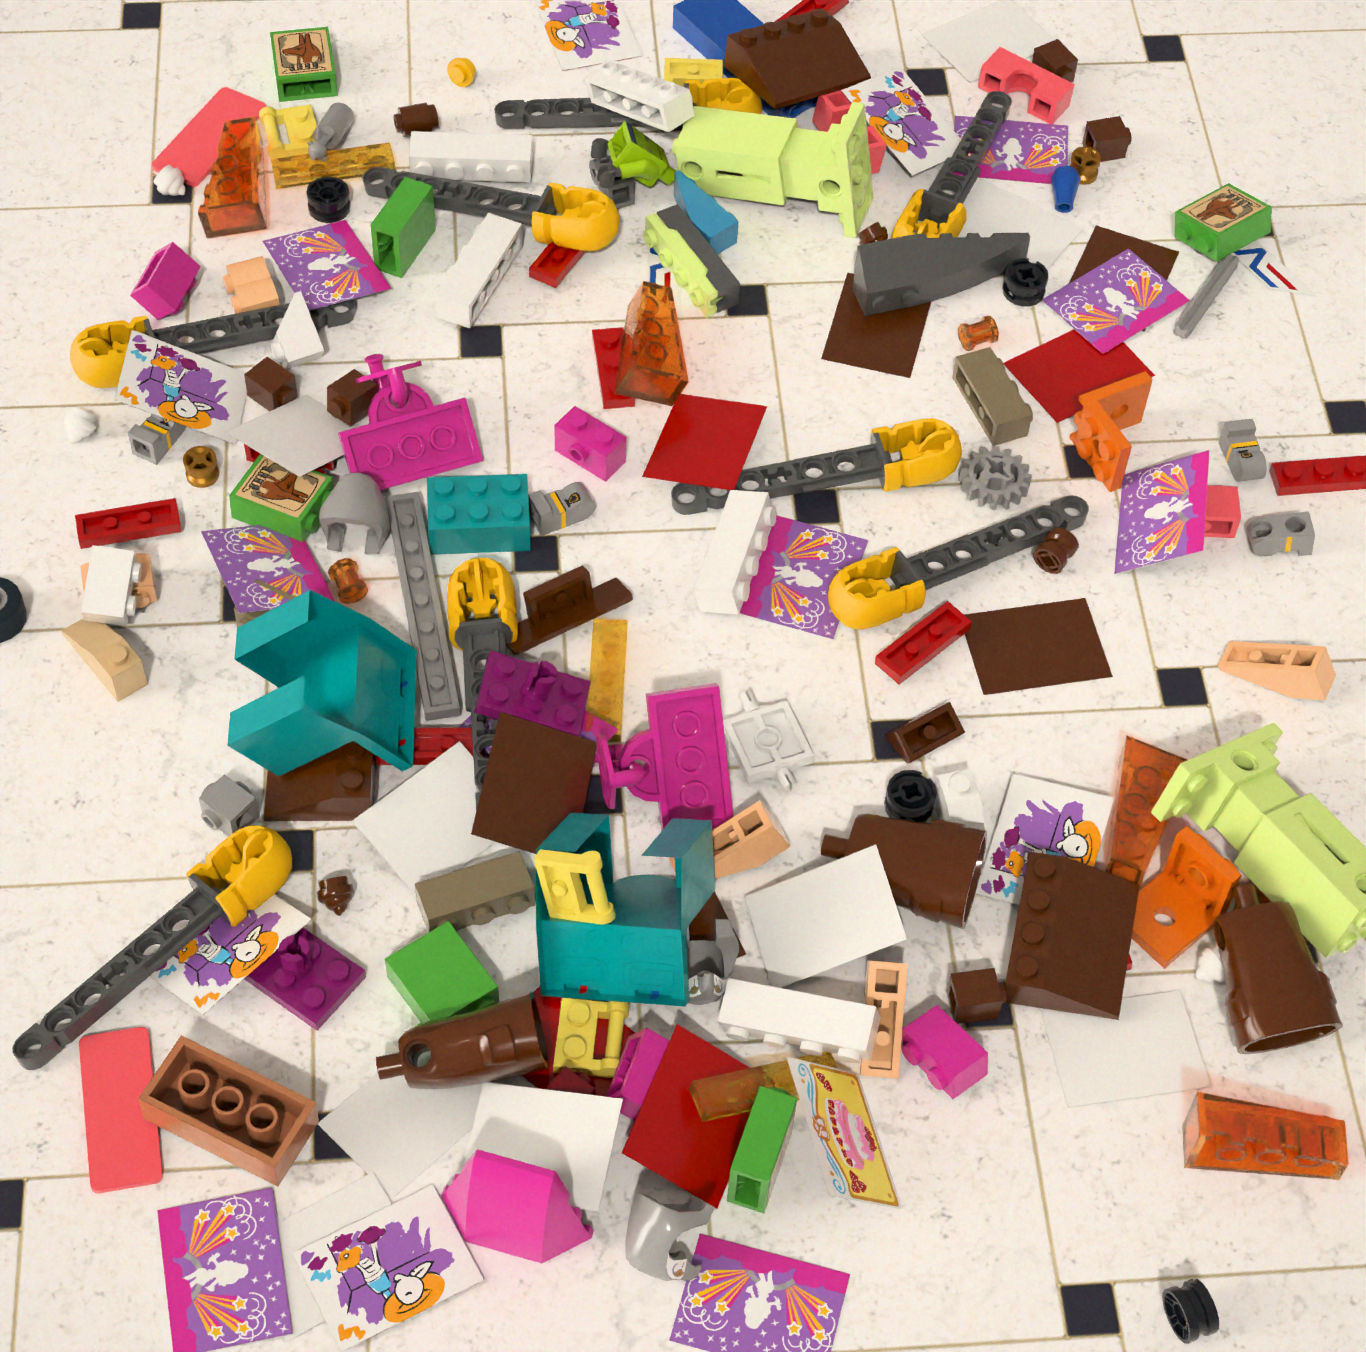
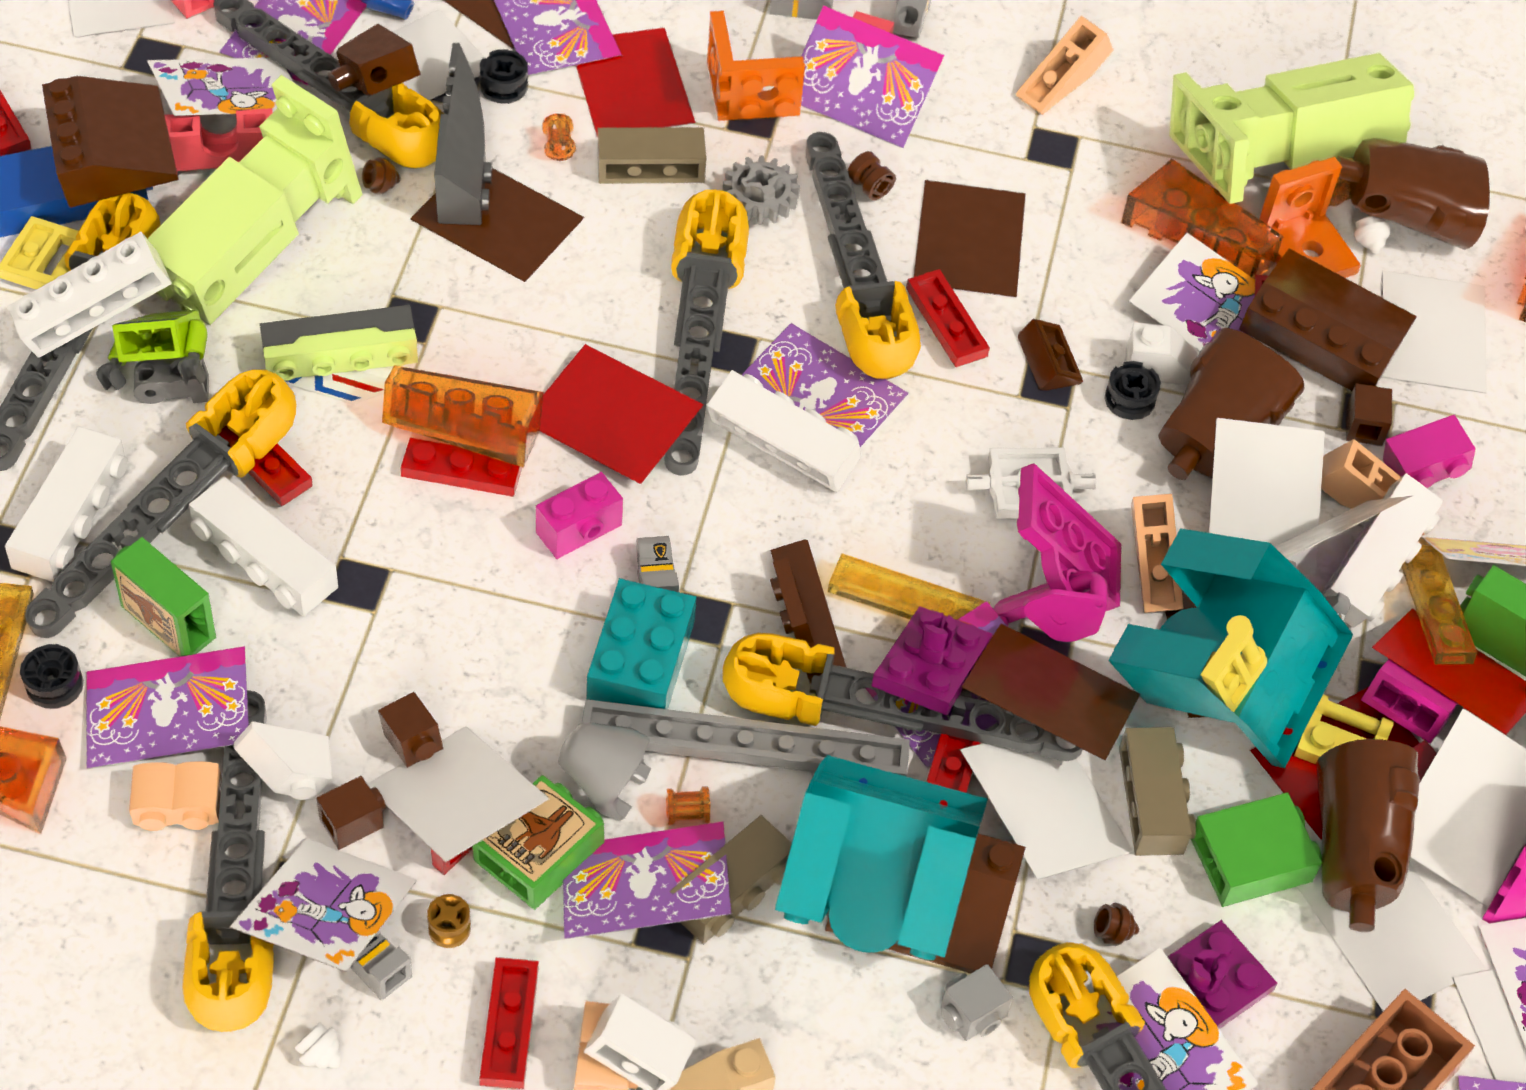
camera: 75 degrees left, 0 degrees up
(166, 281) = (123, 886): dark pink brick -> none
(408, 440) = (499, 670): dark pink plate -> none
(710, 218) = (242, 315): dark azure slope -> none
(783, 955) = (1336, 525): none -> white sticker
(965, 184) = (374, 62): none -> reddish brown torso

